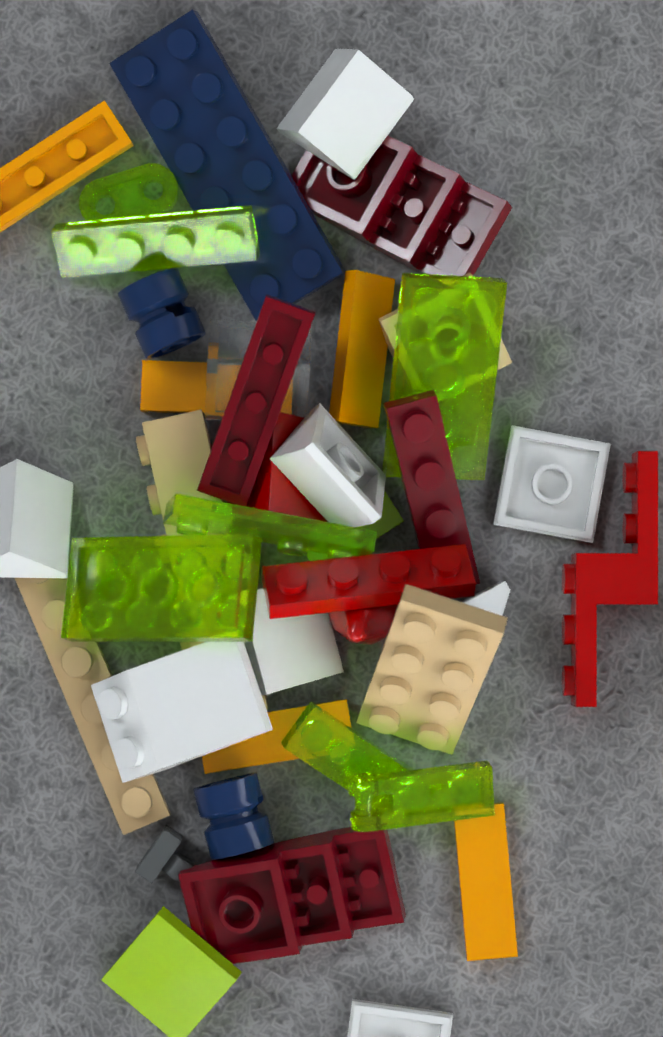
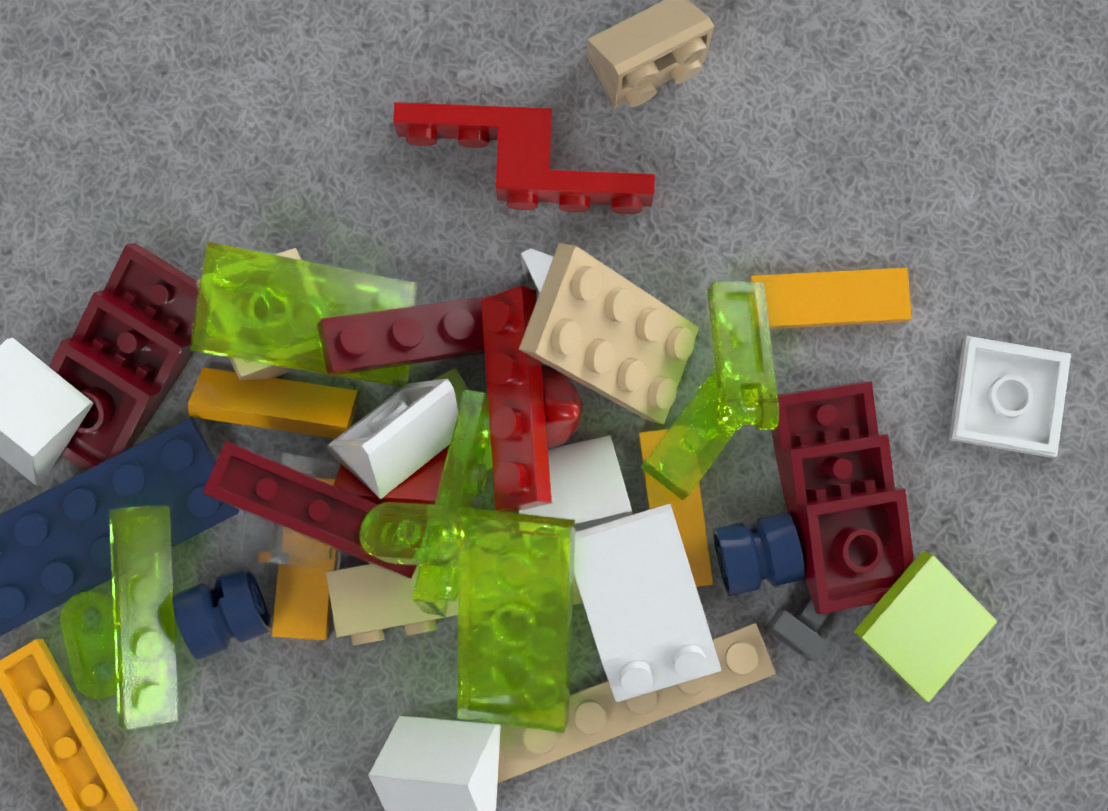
camera: 85 degrees left, 5 degrees down
(234, 495) = (417, 534): none -> clear neon green plate
(551, 484) = (424, 216): white tile -> none

